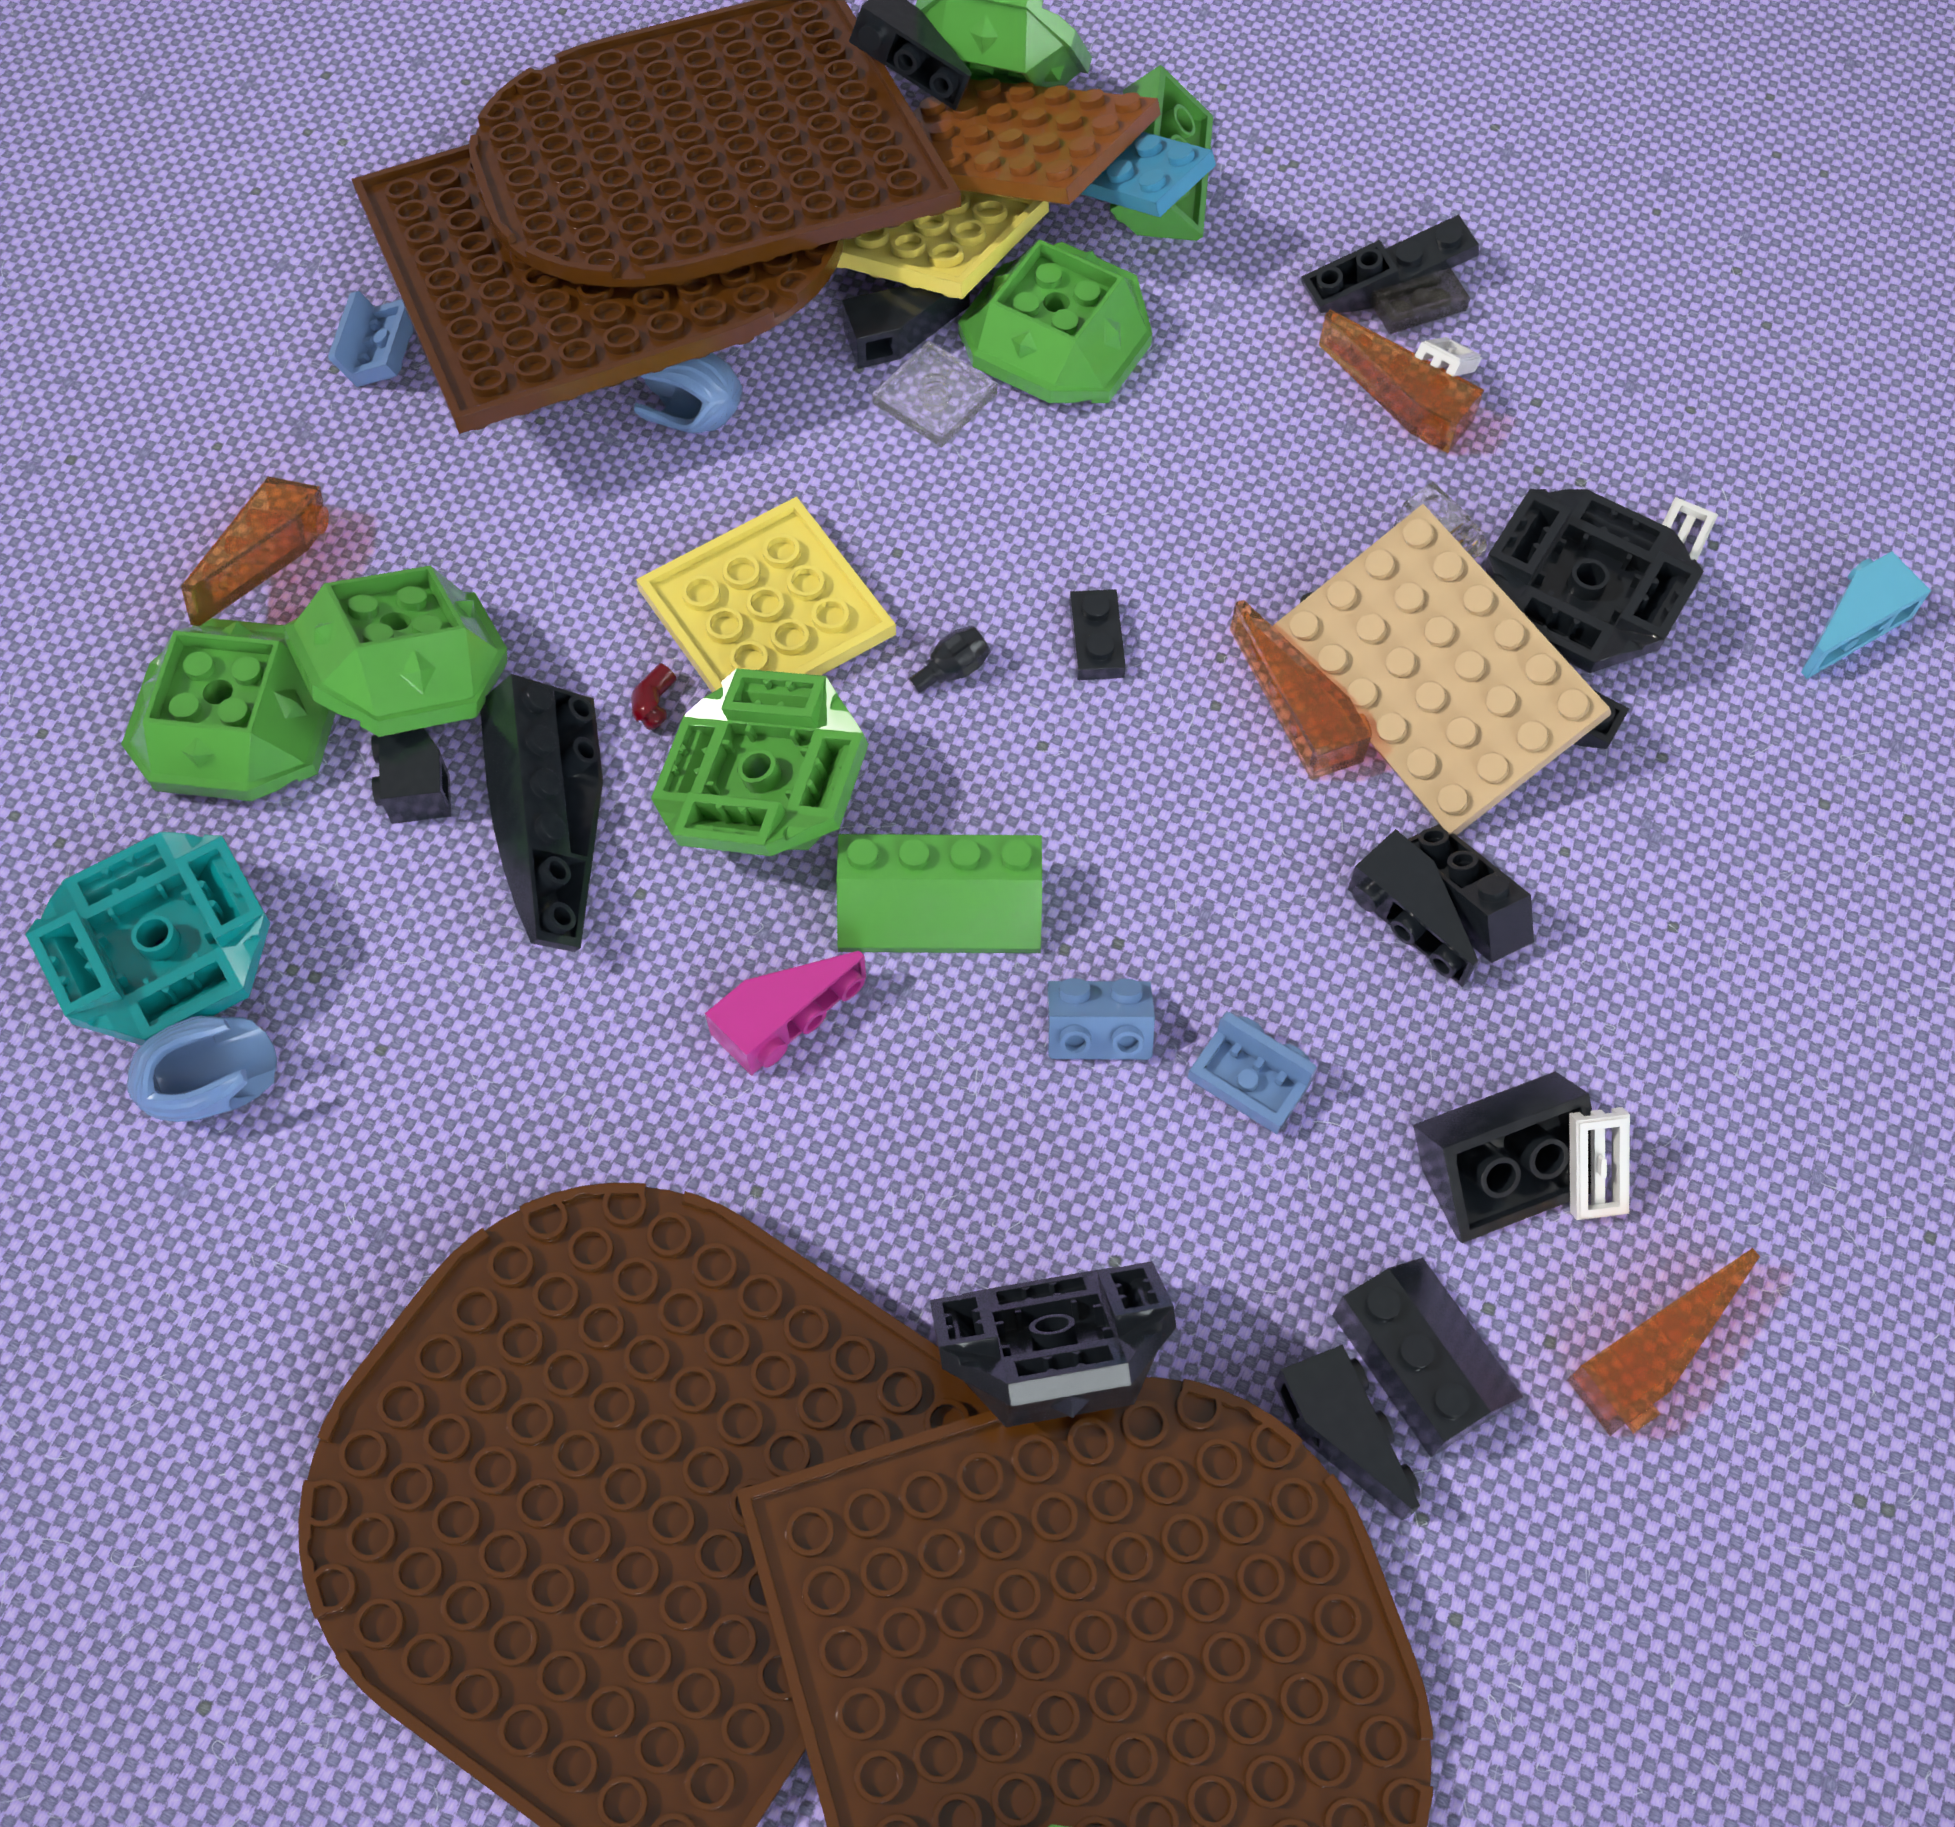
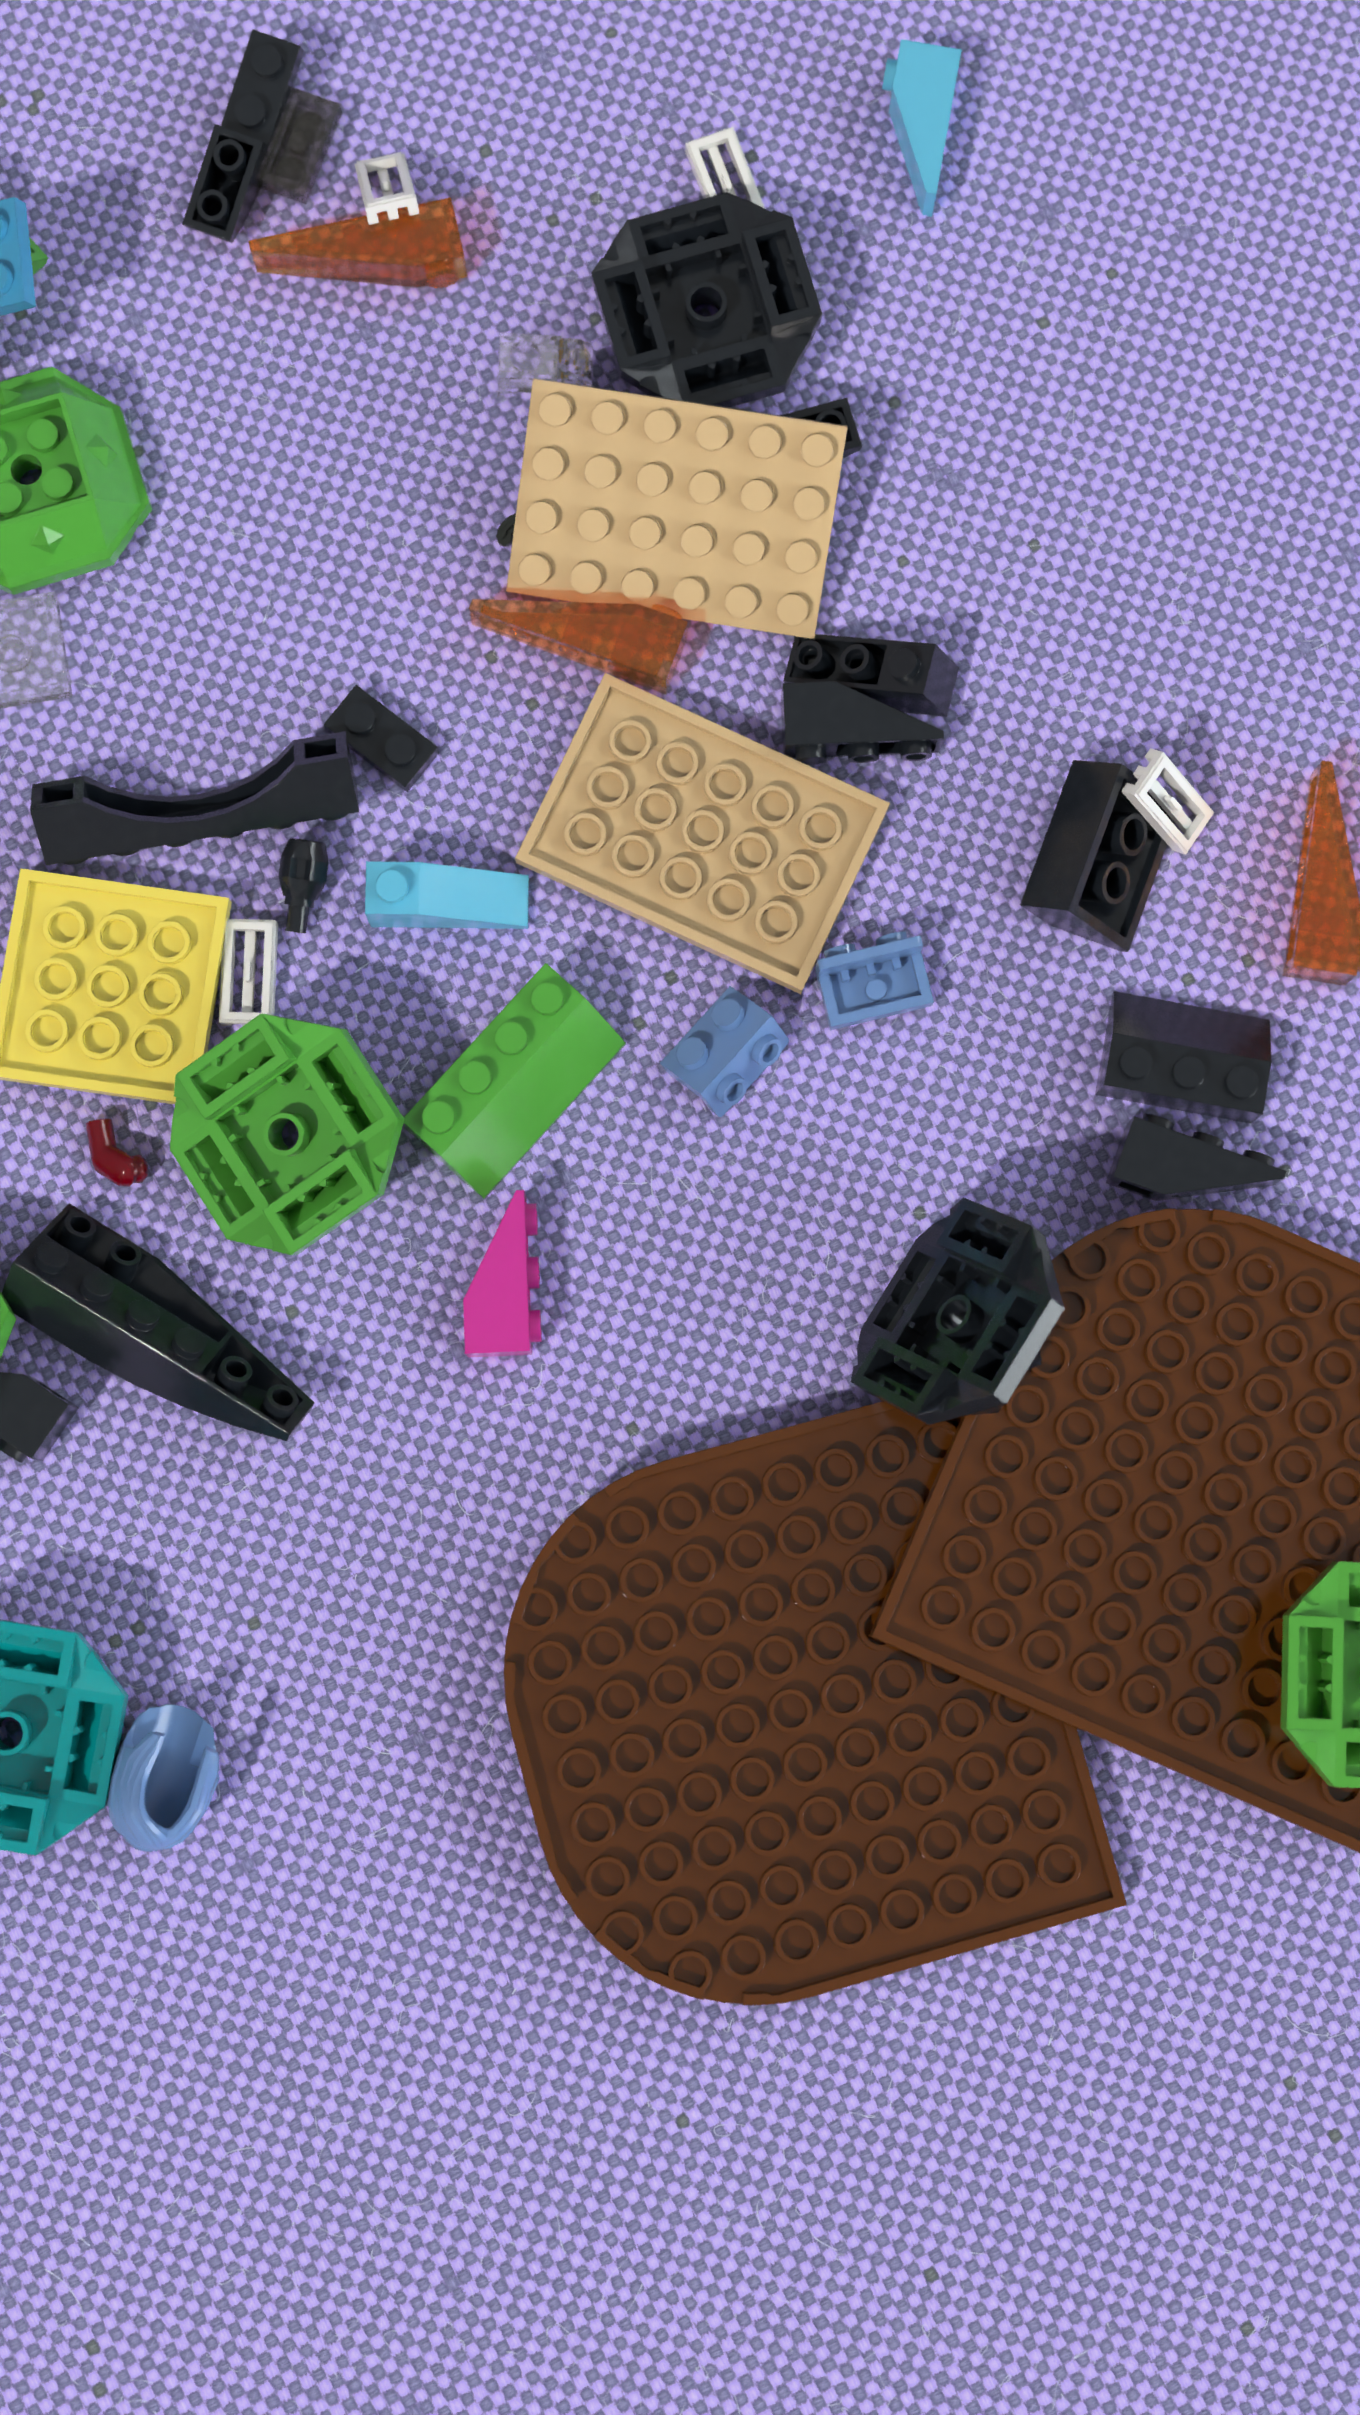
camera: 50 degrees left, 20 degrees up
(869, 506) = (89, 819): none -> black arch
(869, 683) = (251, 927): none -> white tile
(1025, 748) = (444, 896): none -> medium azure slope
(1241, 878) = (702, 833): none -> tan plate

